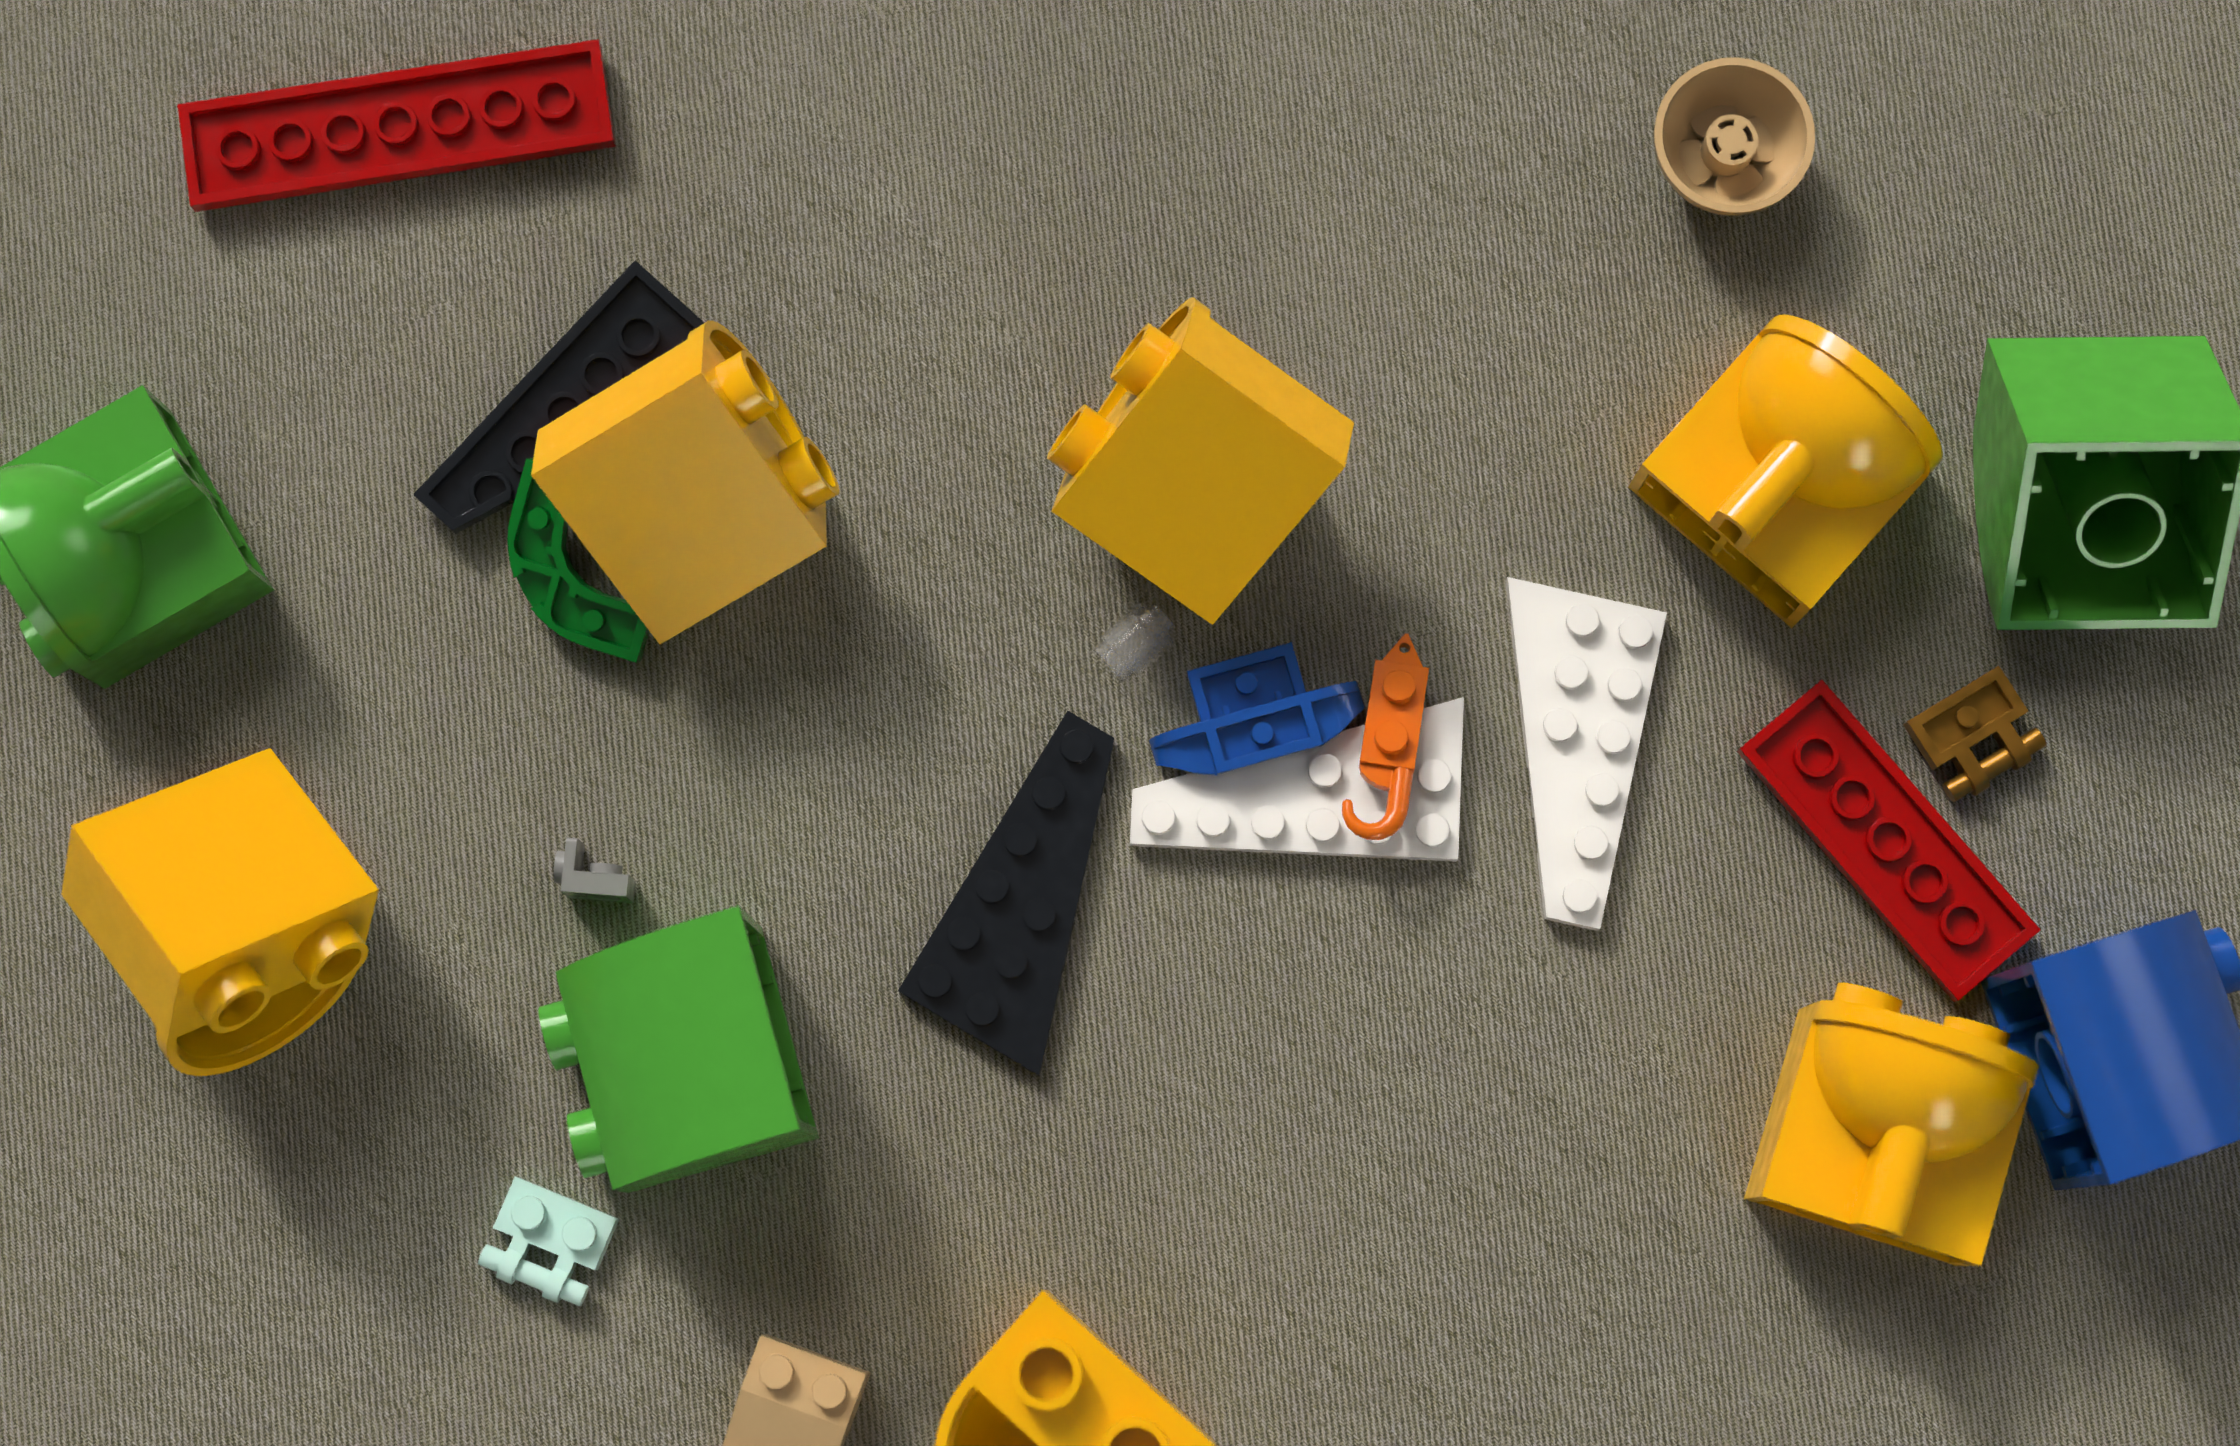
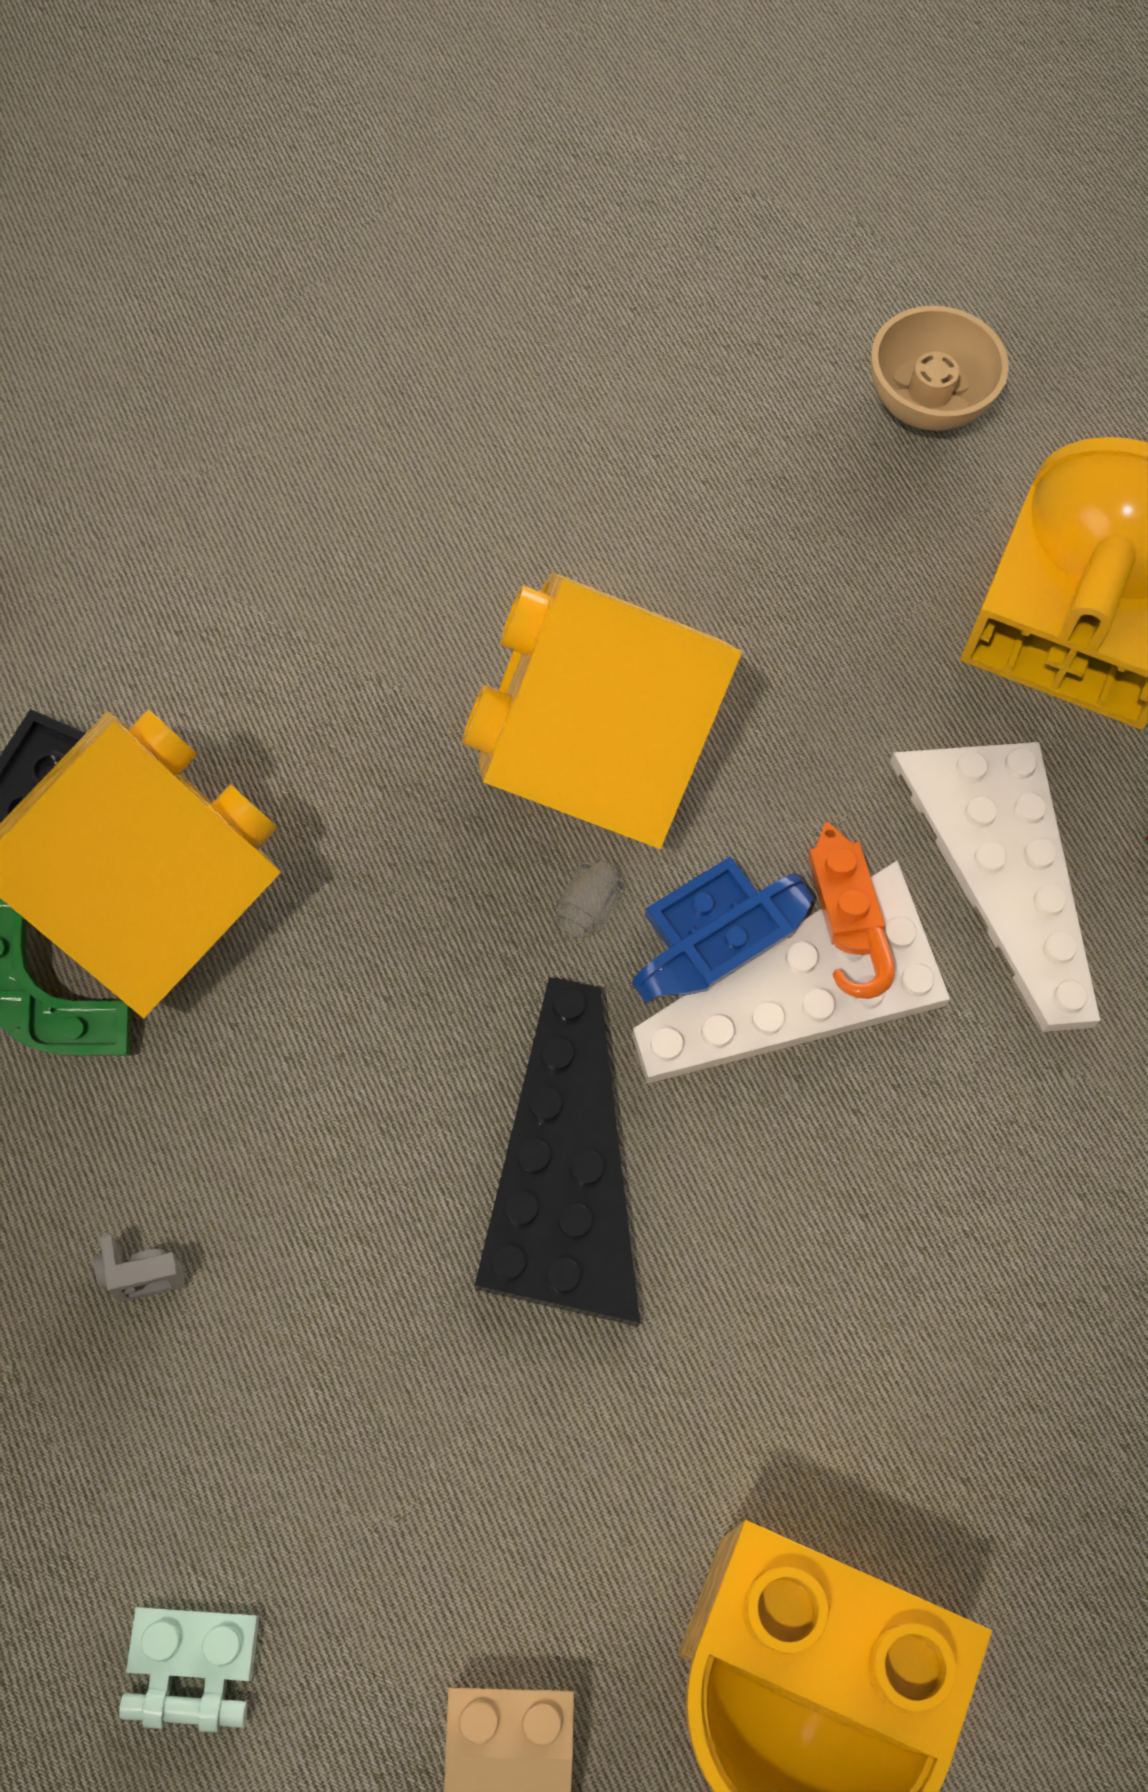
camera: 25 degrees left, 15 degrees down
(678, 1053) = (272, 1409): bright green brick -> none

